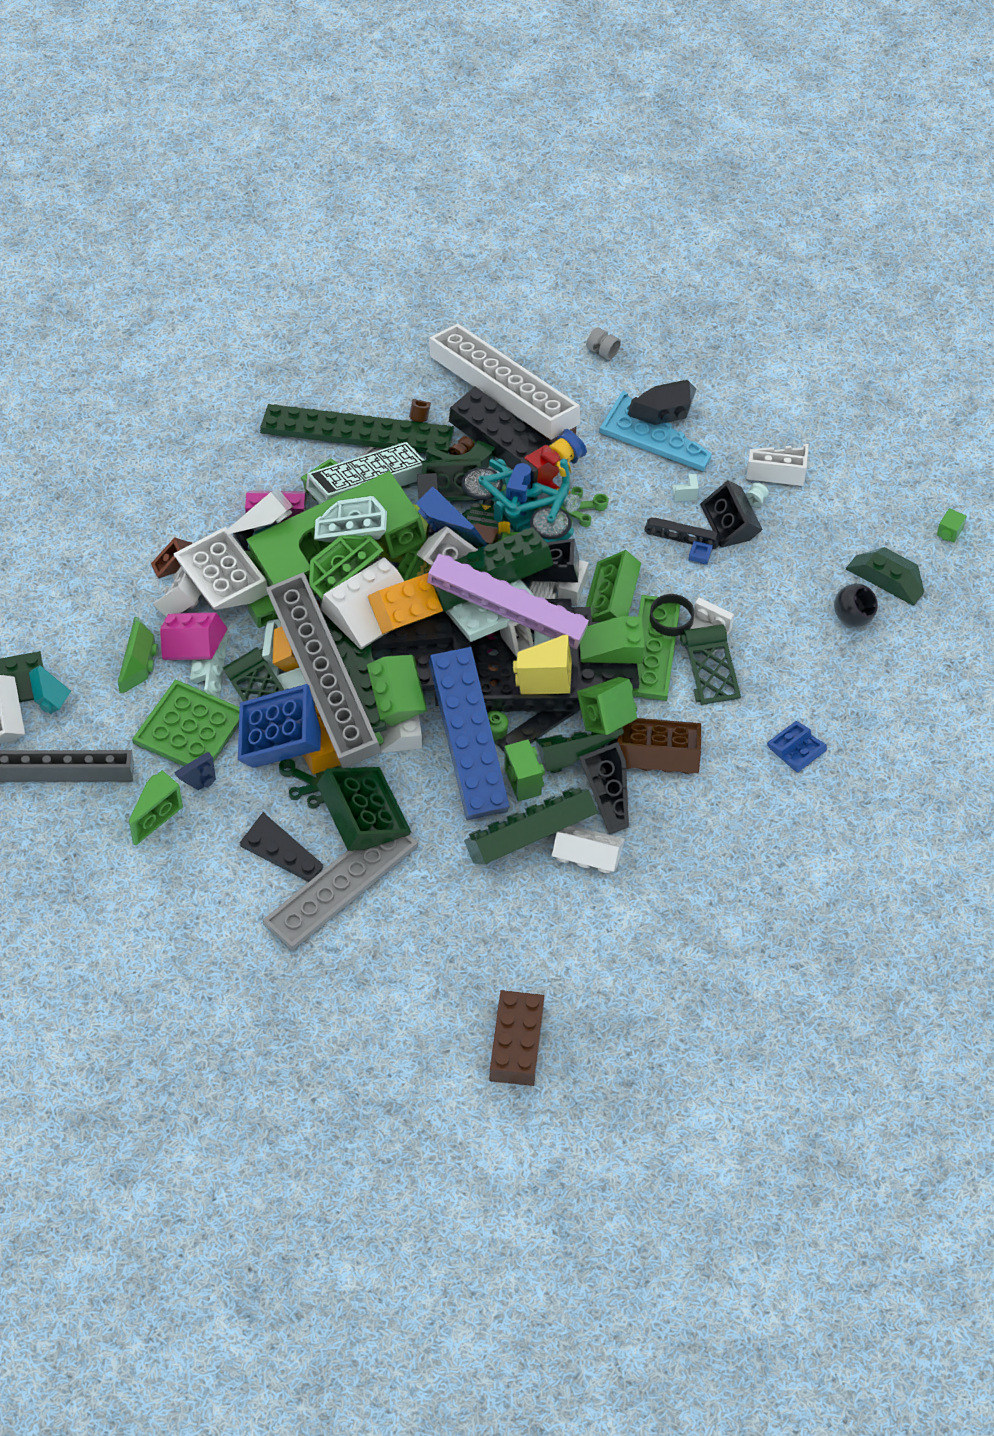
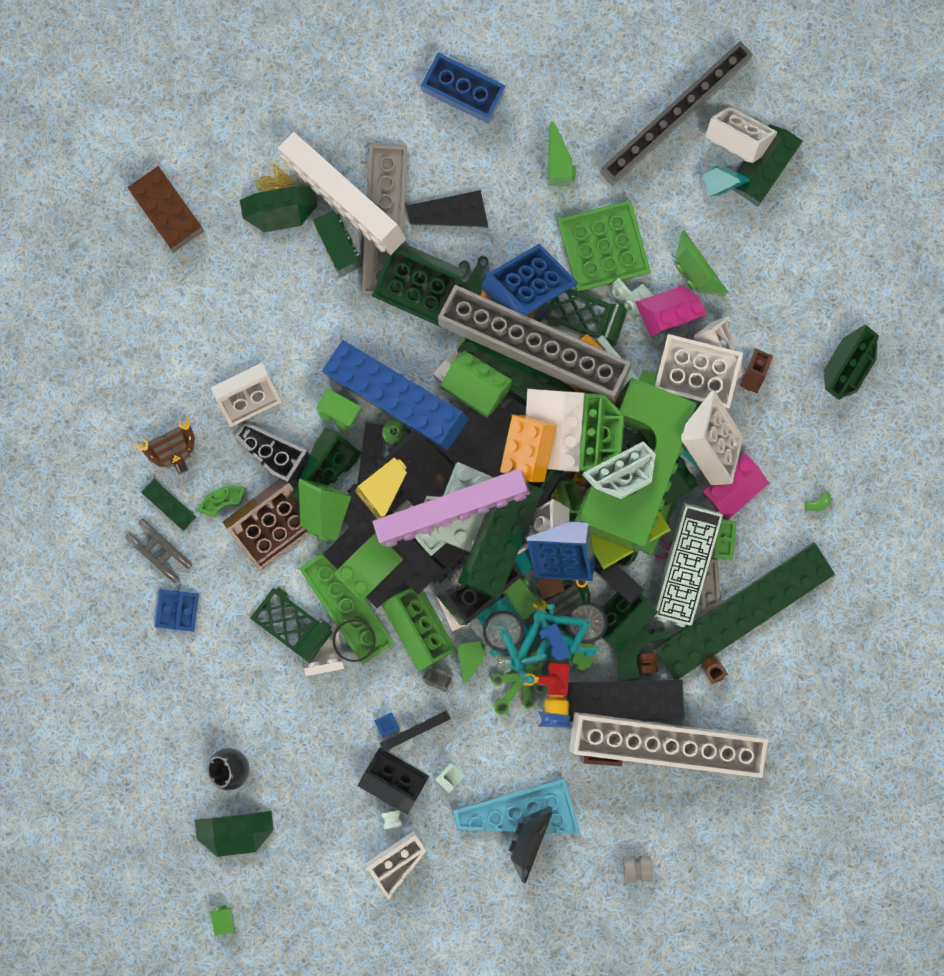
camera: 140 degrees right, 30 degrees up
(103, 511) = (851, 362): none -> dark green wedge
(169, 922) = (463, 88): none -> blue brick
(199, 772) = (551, 211): dark blue wing -> none
(229, 450) = (819, 505): none -> bright green arm
(356, 905) = (341, 194): none -> white brick
(398, 888) = (337, 243): none -> dark green brick
(398, 981) = (280, 180): none -> clear yellow slope
(419, 963) = (279, 208): none -> dark green wedge
(530, 826) = (292, 367): dark green brick -> none
(593, 544) = (471, 657): none -> bright green slope
(630, 539) = (438, 678): none -> clear smoke slope
(683, 794) = (220, 499): none -> bright green tile
(690, 855) = (171, 448): none -> reddish brown torso
(732, 822) = (168, 504): none -> dark green plate
(765, 803) = (170, 551): none -> dark grey piece

